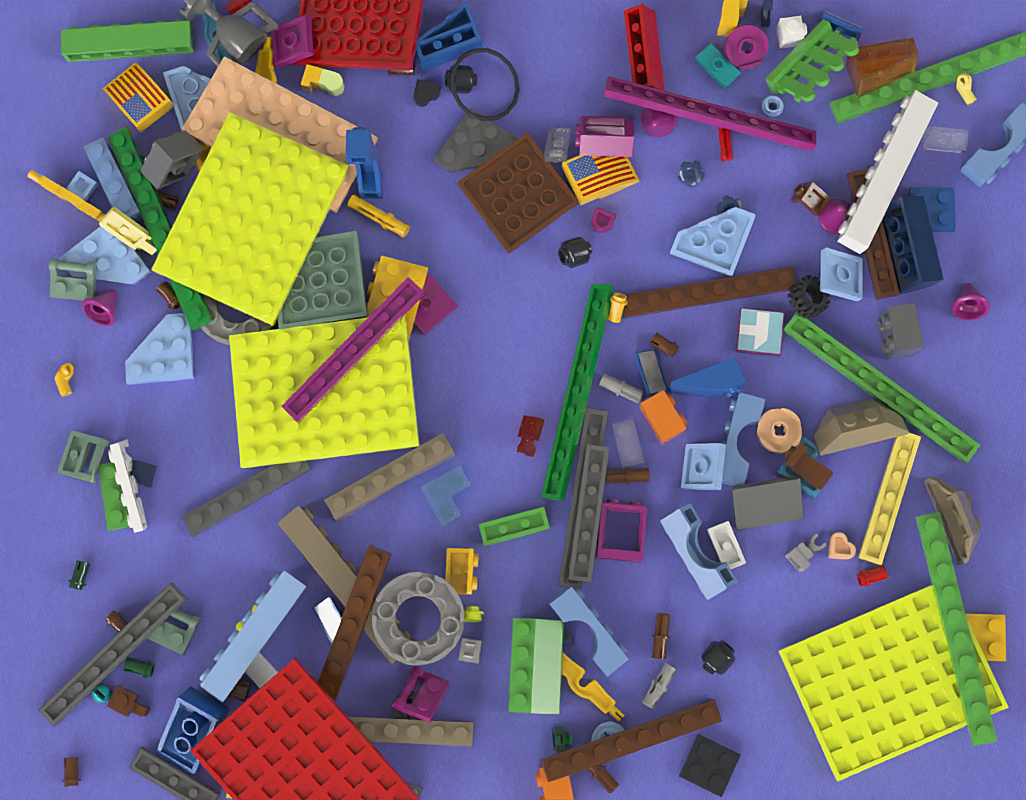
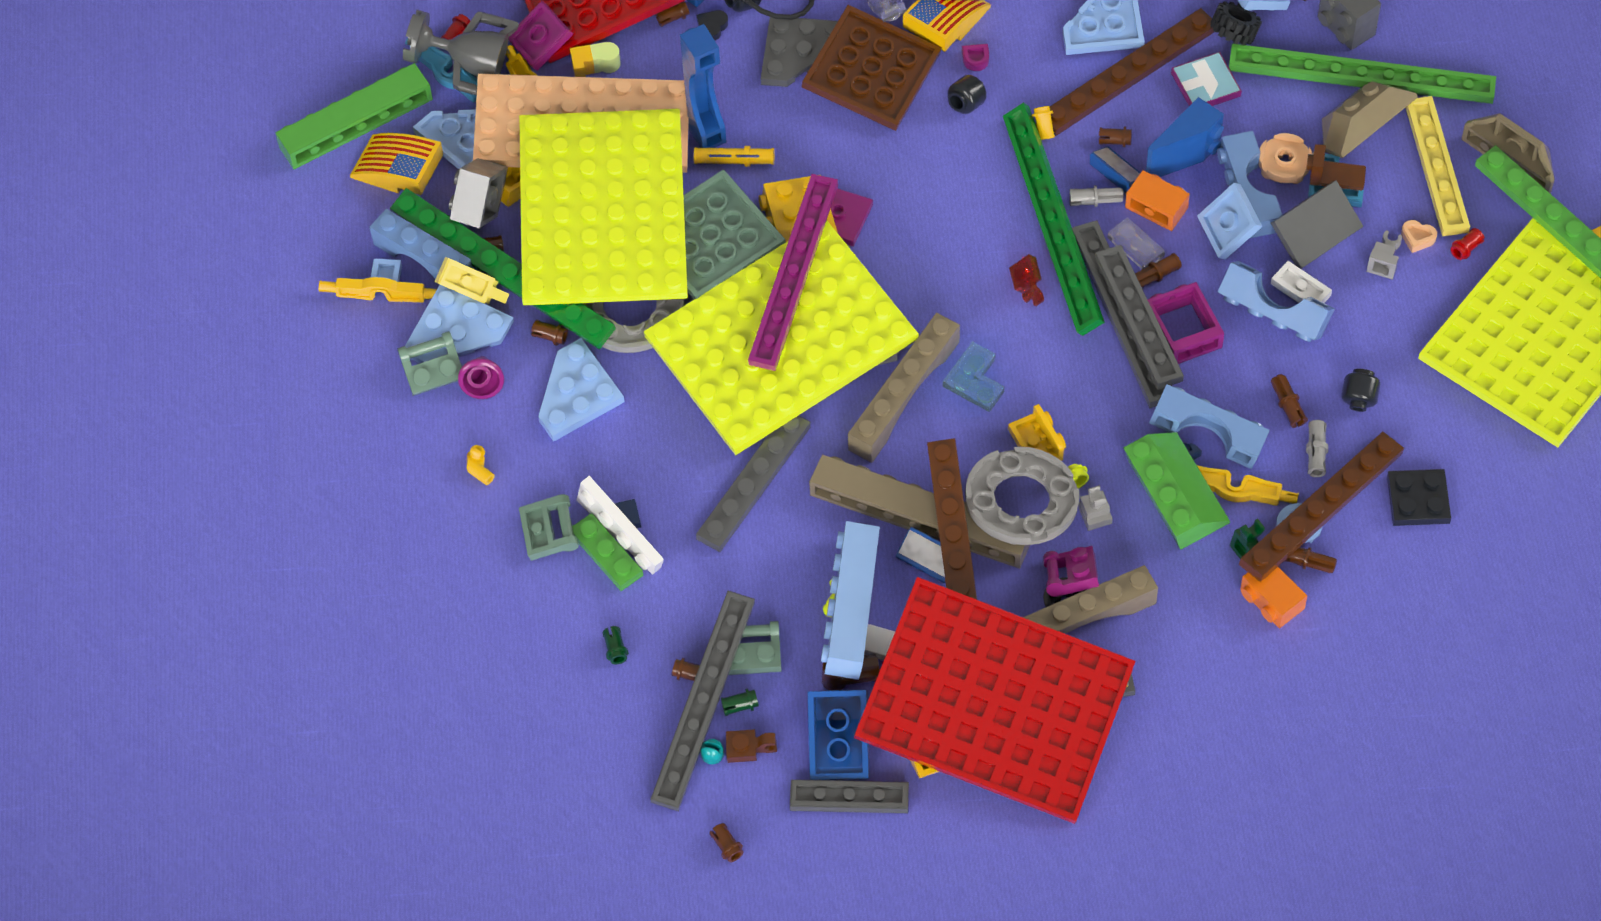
camera: 30 degrees left, 20 degrees down
(514, 526) = (1066, 373): bright green plate -> none

